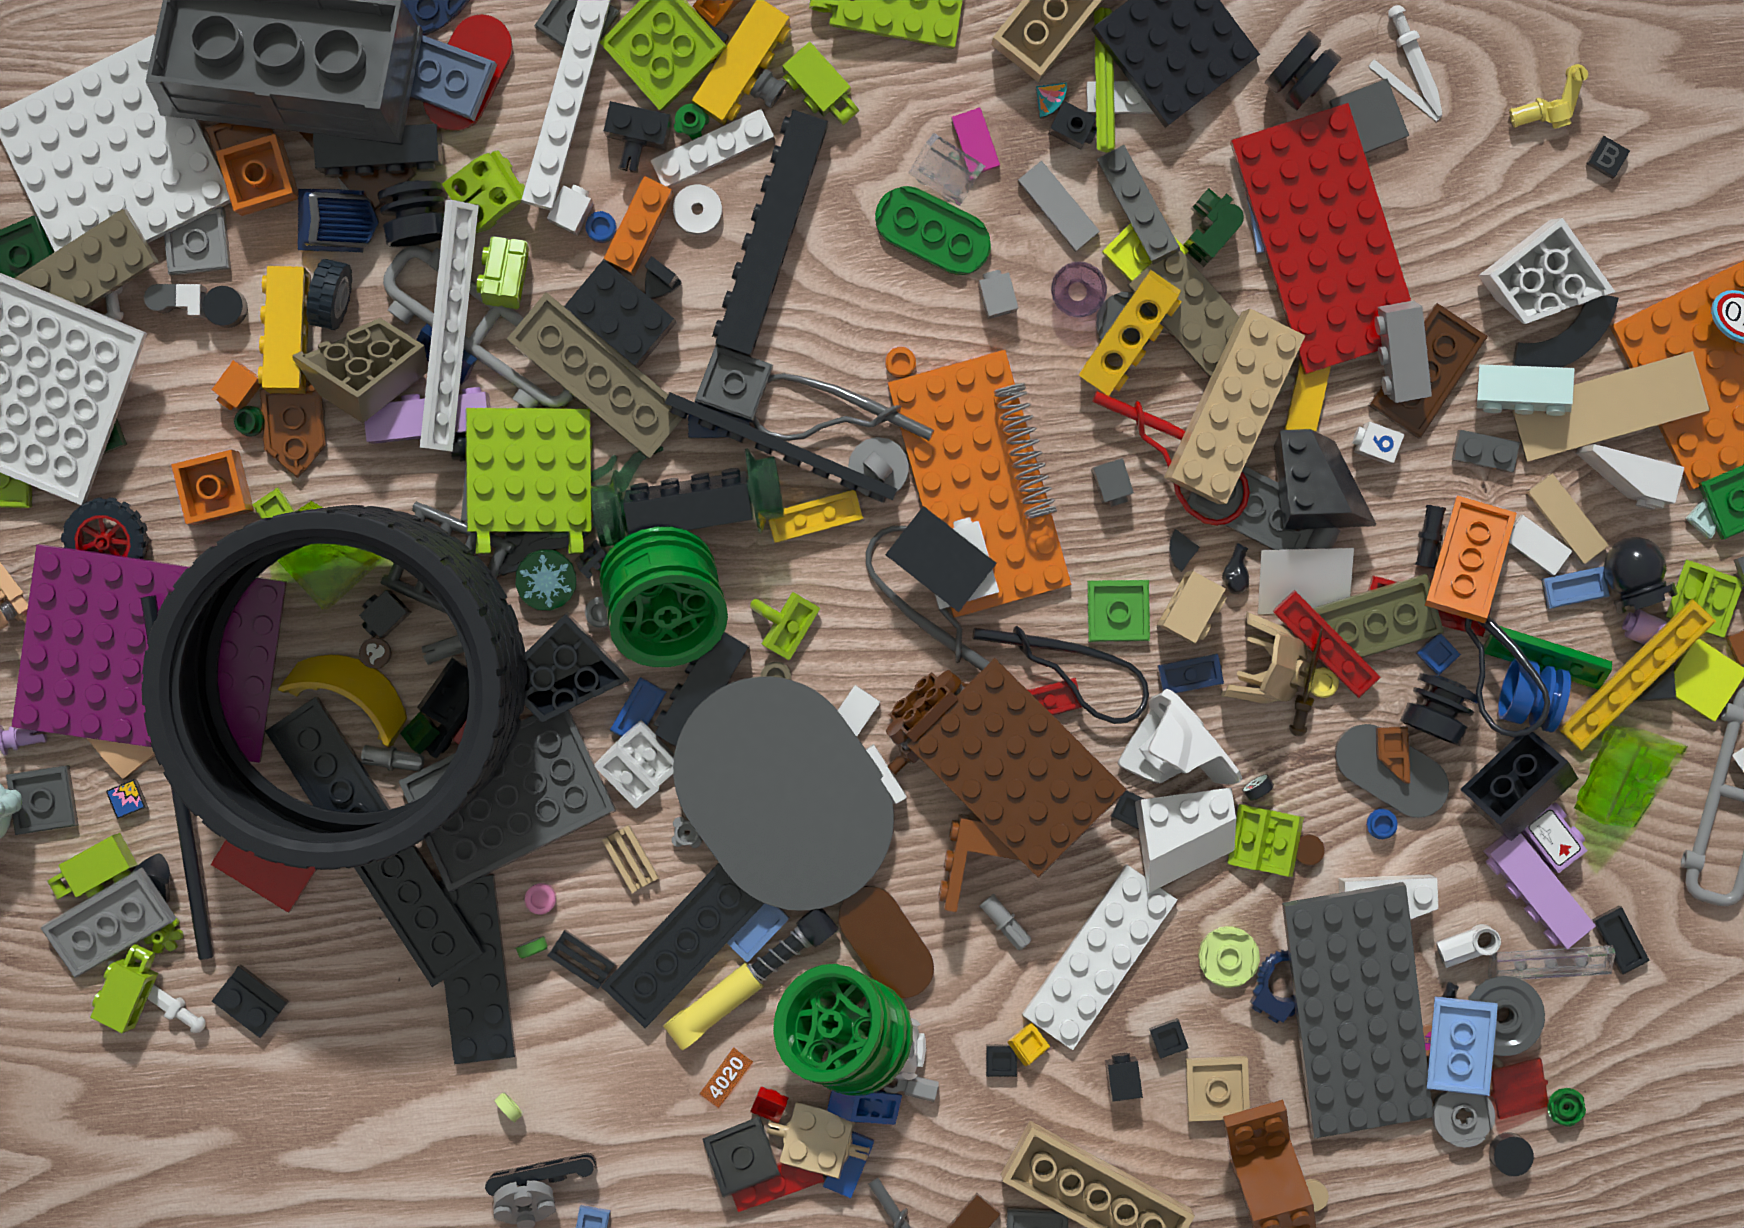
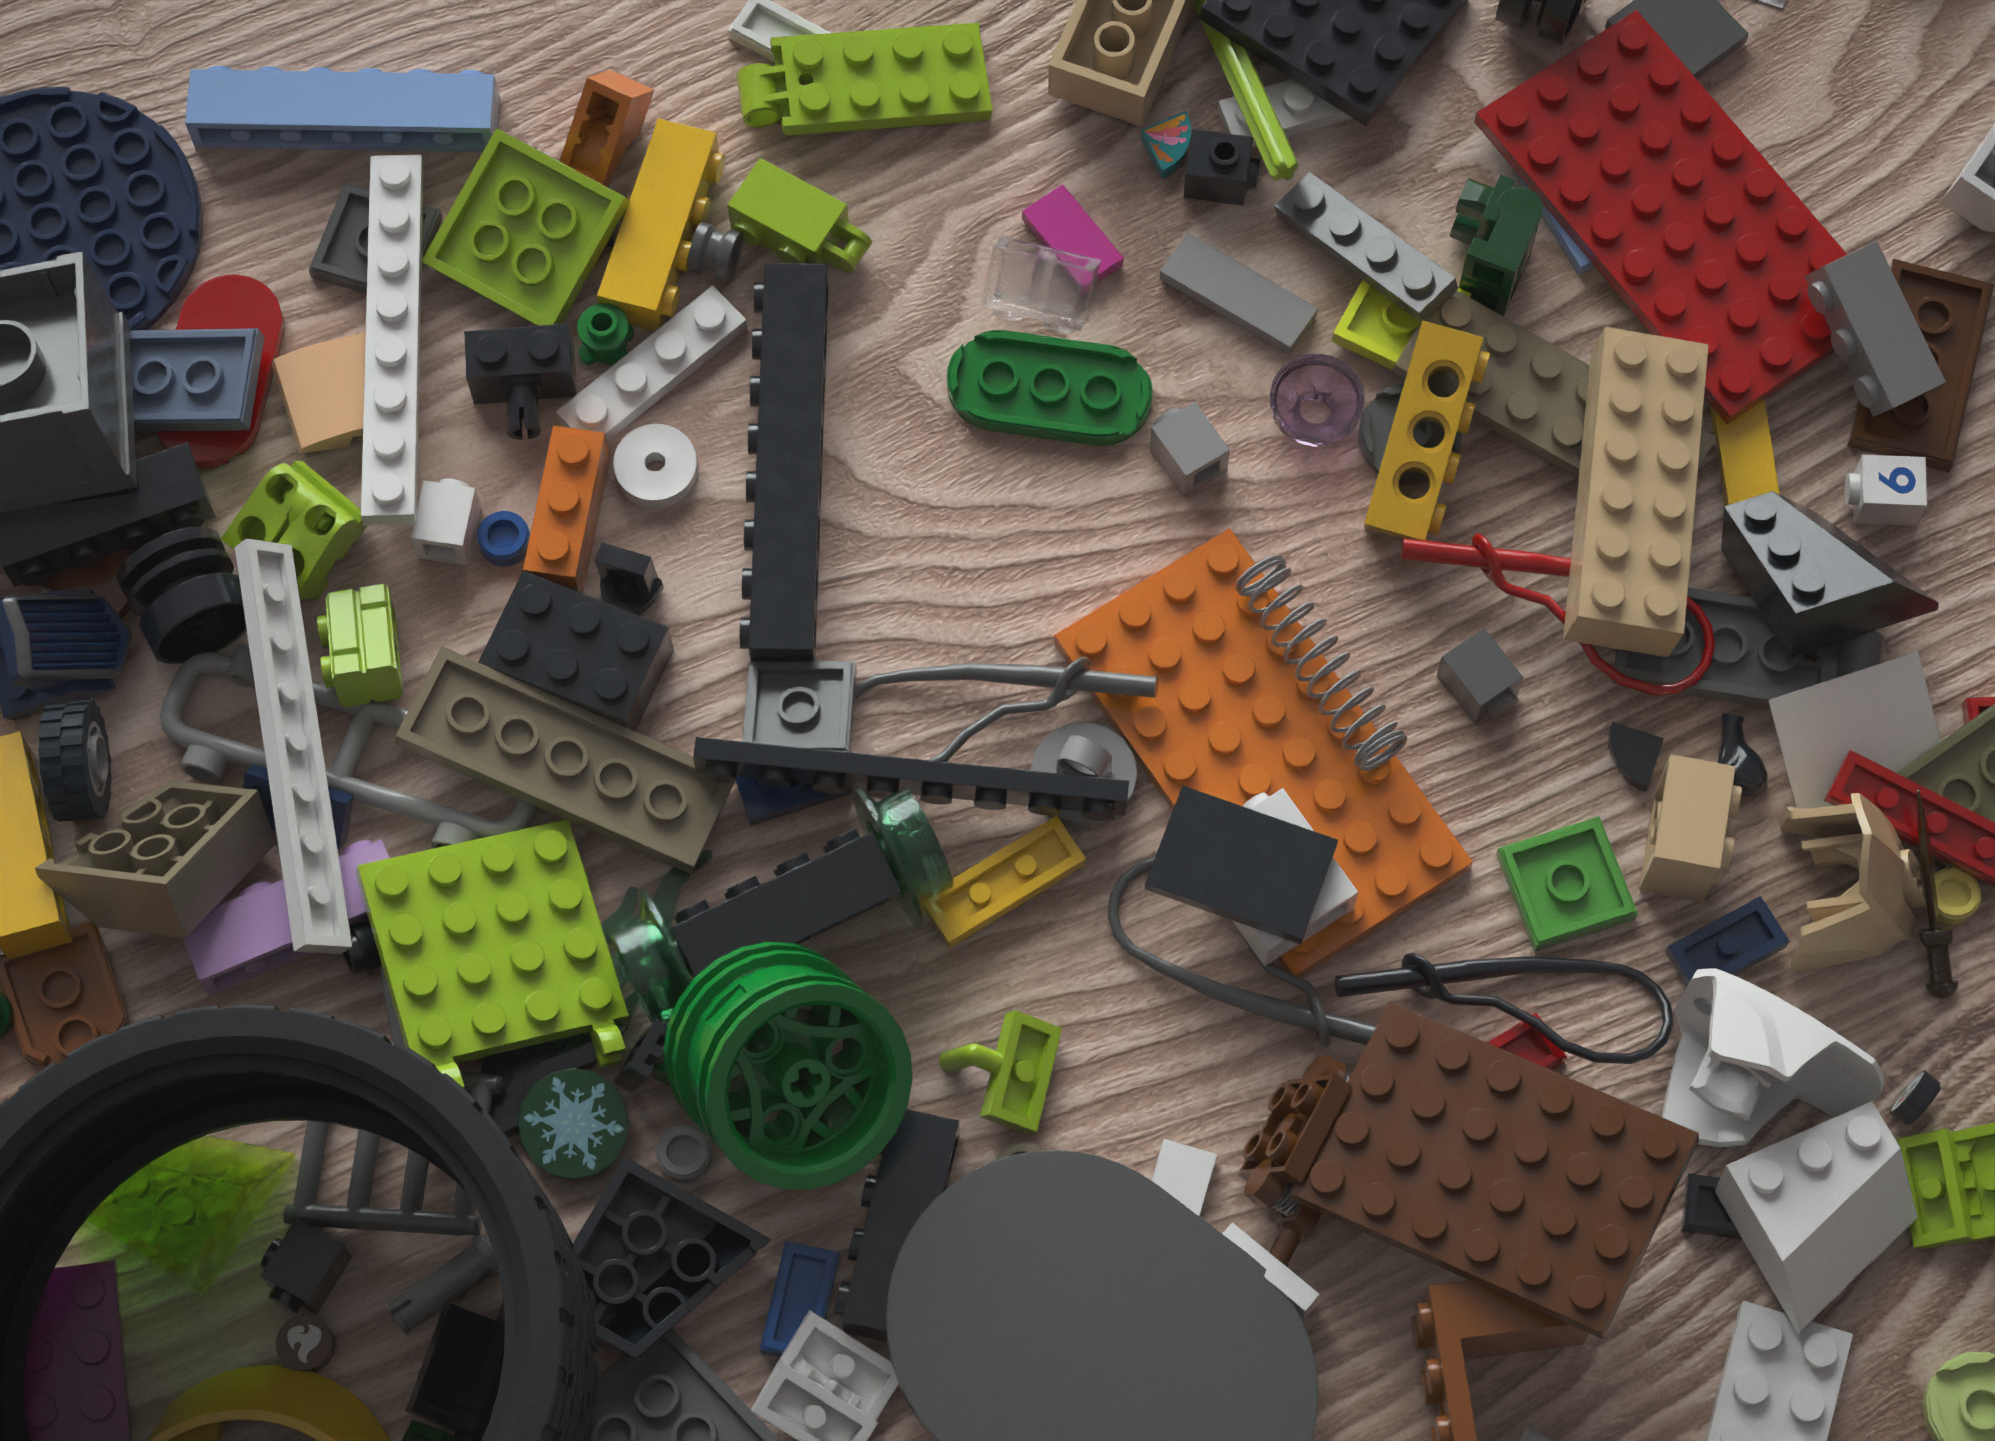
camera: 25 degrees left, 20 degrees down
(523, 106) = (324, 392): none -> light nougat slope
(900, 362) = (1064, 600): orange tile -> none

